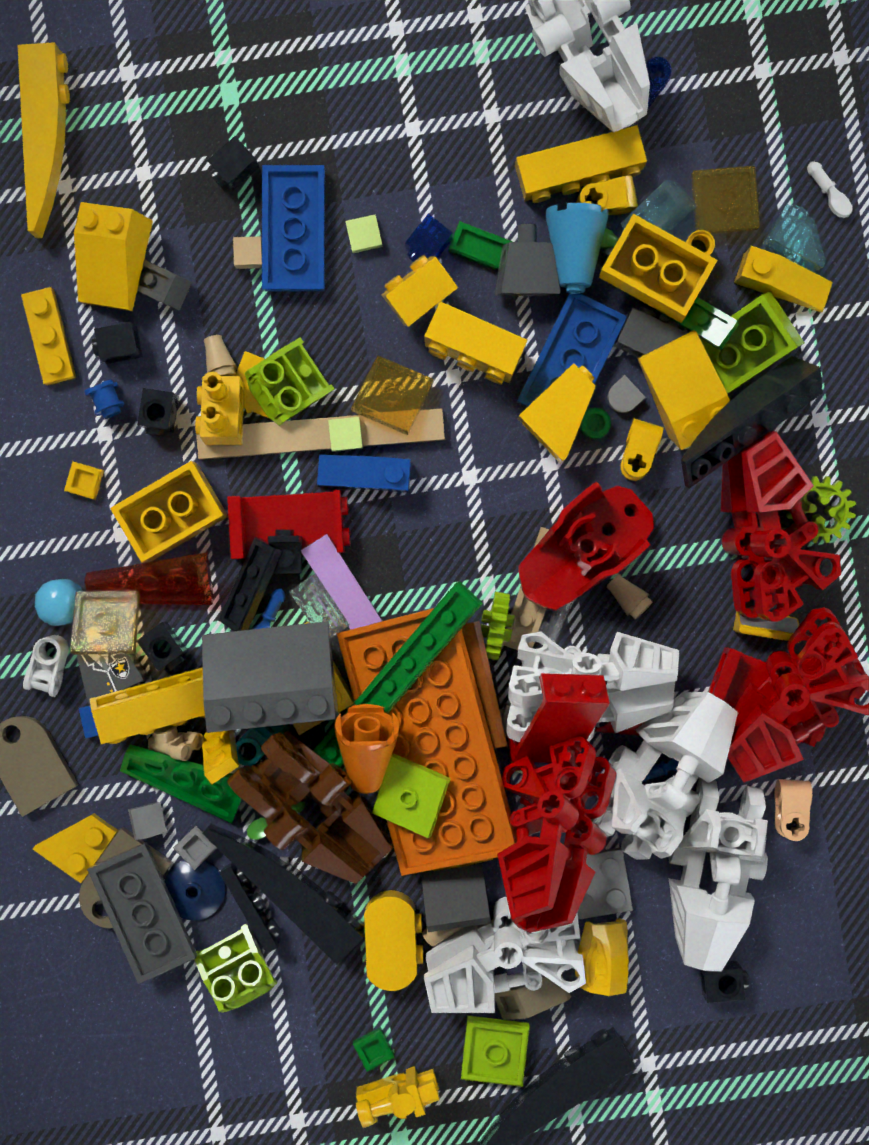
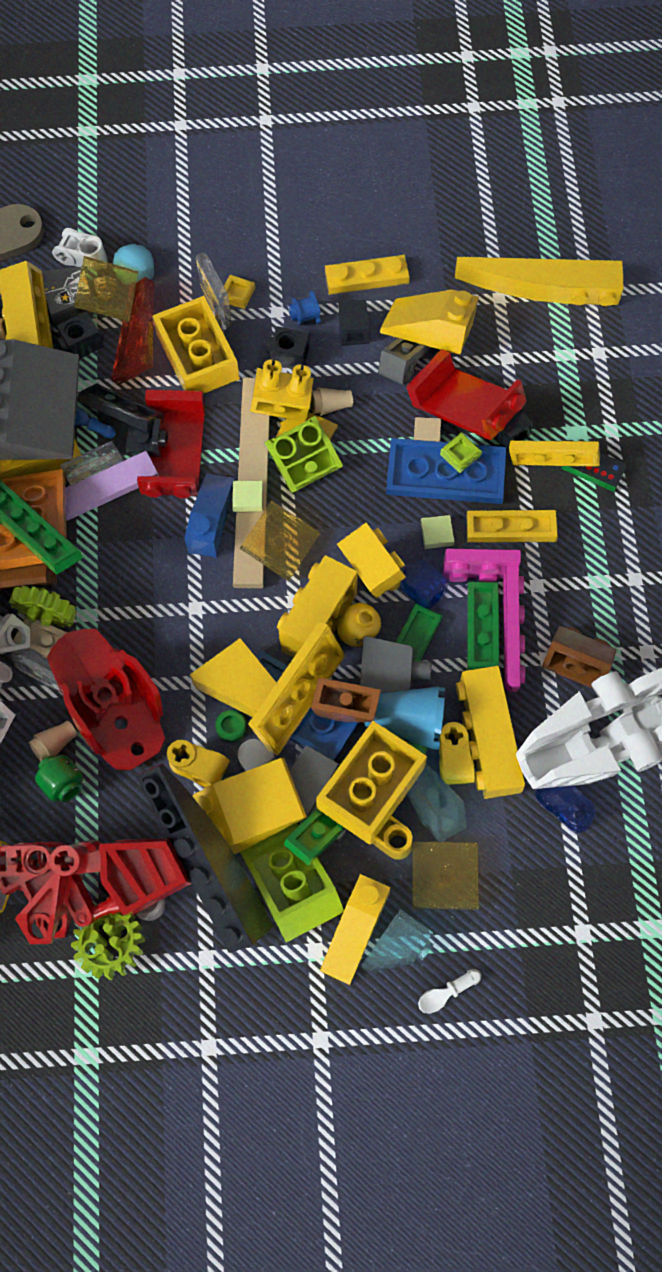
camera: 95 degrees right, 20 degrees down
(97, 500) = (214, 290): none -> clear tile
(210, 208) = (464, 398): none -> red panel
(268, 111) = (555, 453): none -> yellow tile
(272, 73) = (605, 475): none -> black tile
(275, 211) = (460, 452): none -> lime tile
(352, 155) = (512, 526): none -> yellow plate
(453, 147) = (488, 567): none -> dark pink bracket
(468, 179) = (482, 625): none -> green plate
(483, 300) = (358, 622): none -> yellow head
(495, 77) = (579, 656): none -> dark orange slope
(567, 350) = (296, 688): none -> yellow tile
(576, 301) = (345, 701): none -> dark orange slope
(669, 581) = (59, 778): none -> green head

